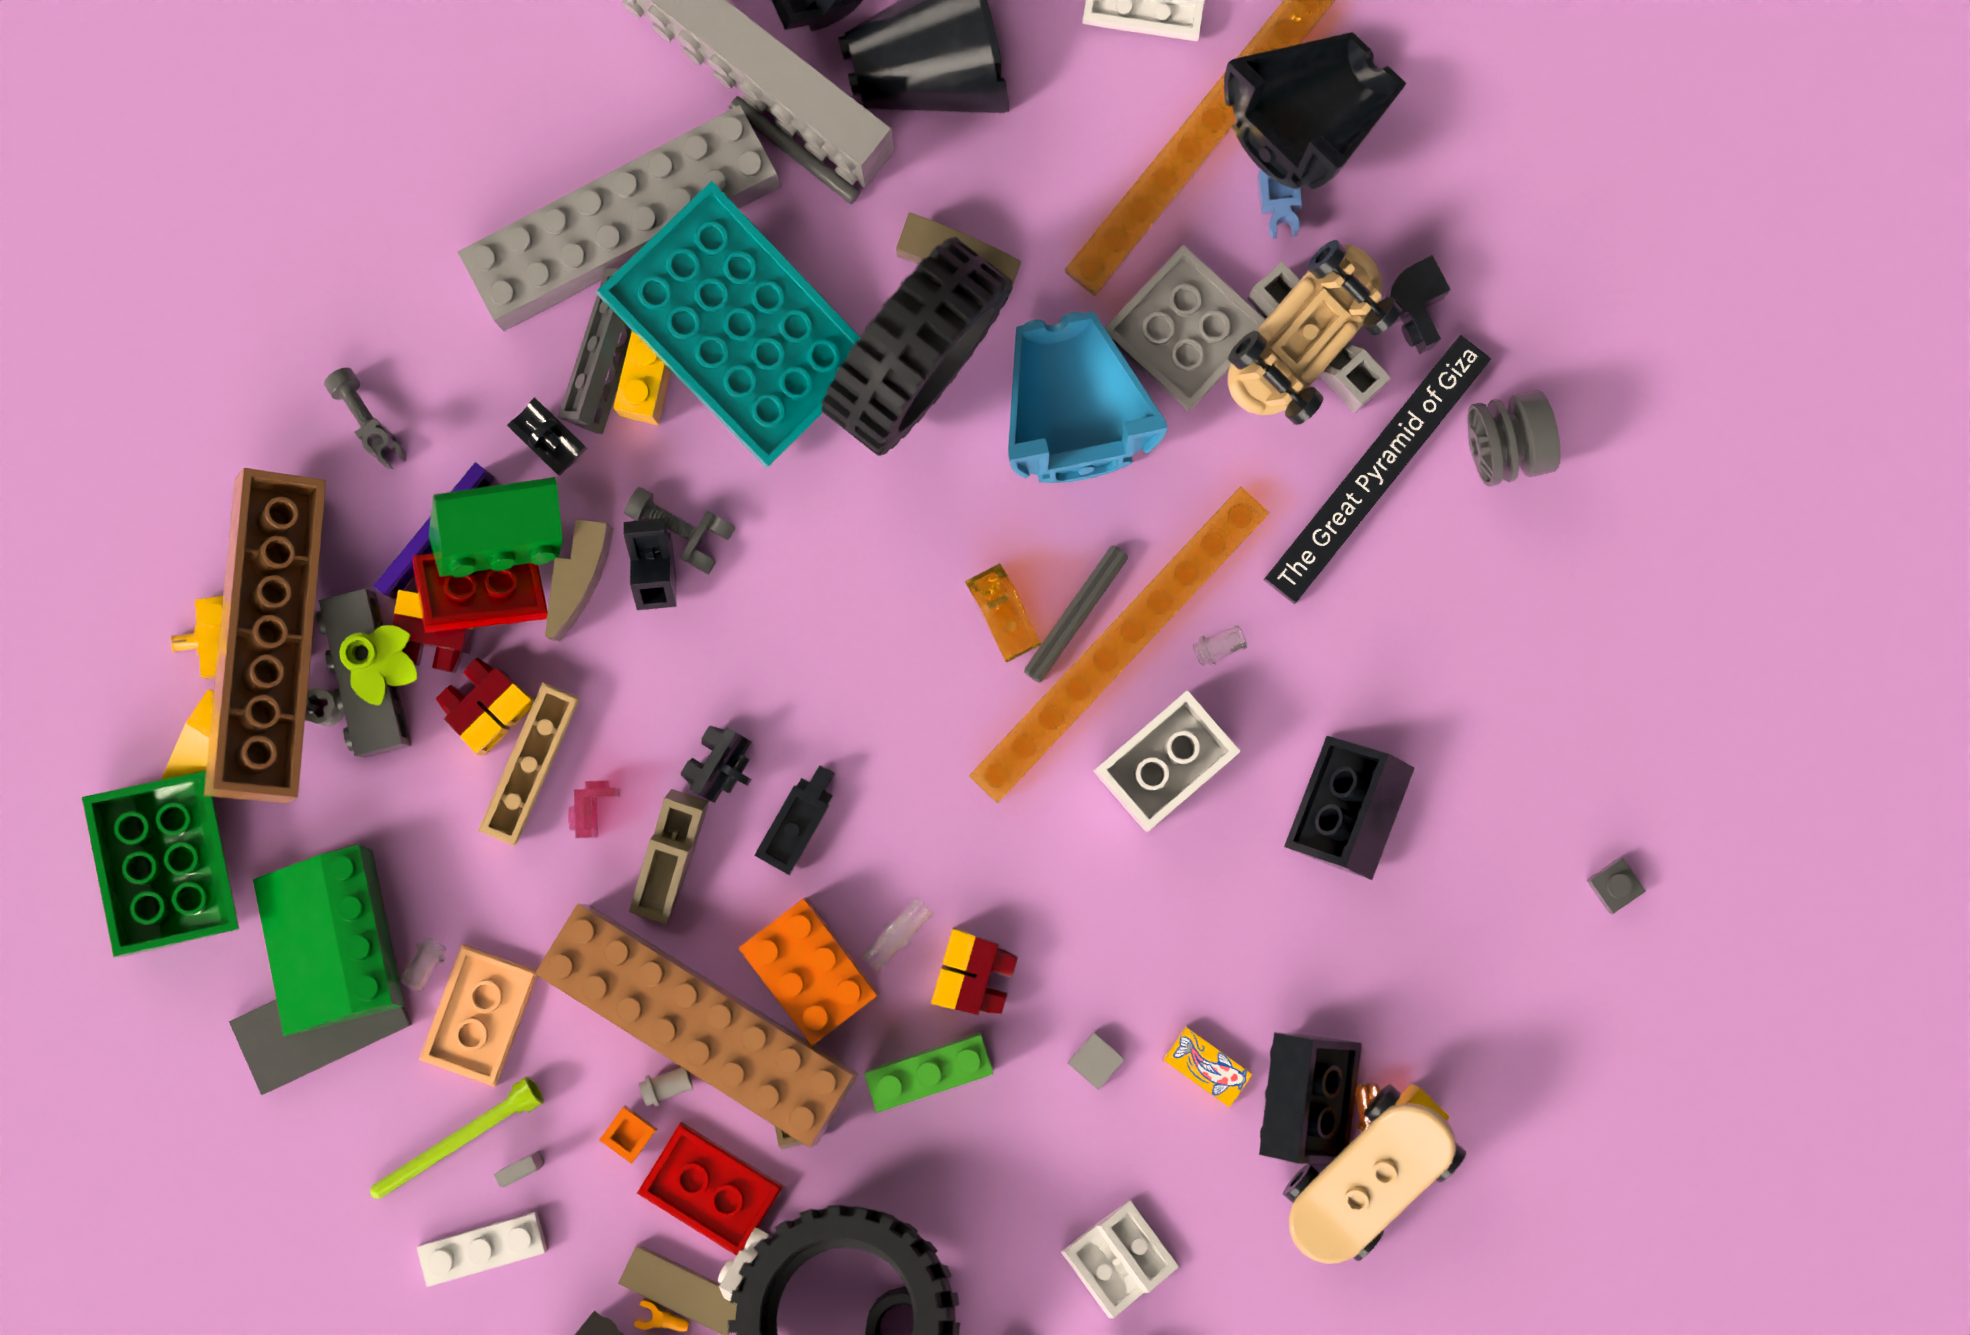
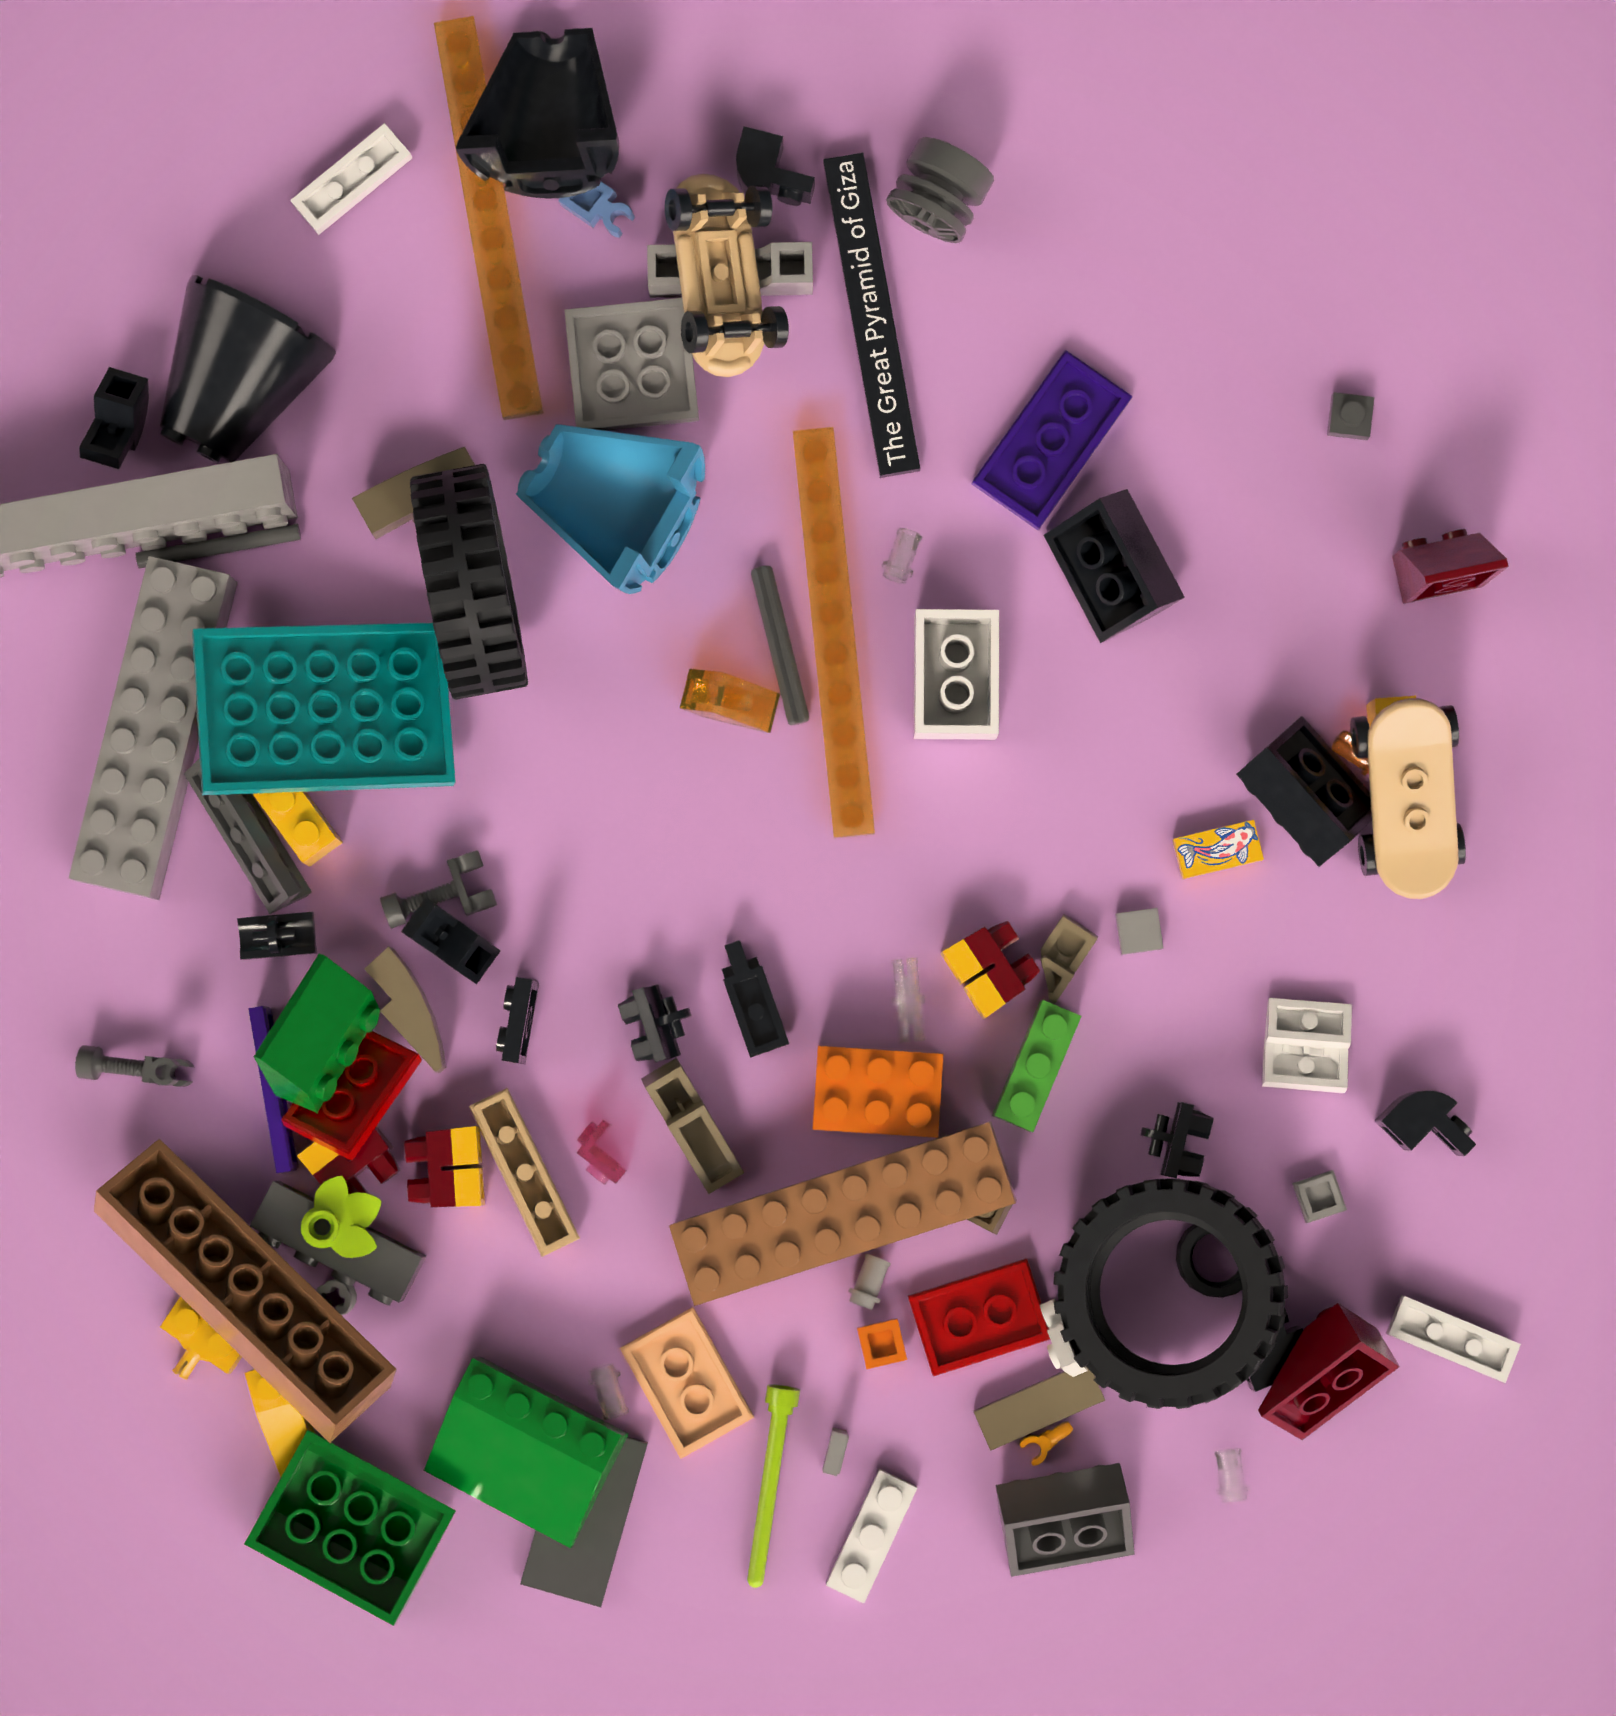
camera: 50 degrees left, 0 degrees up
(645, 657) = (515, 1037): none -> black plate
(950, 1236) = (1176, 1159): none -> black hips
(1030, 1020) = (1064, 954): none -> dark tan slope
(1402, 680) = (1051, 440): none -> dark purple tile
(1568, 1055) = (1446, 566): none -> dark red slope

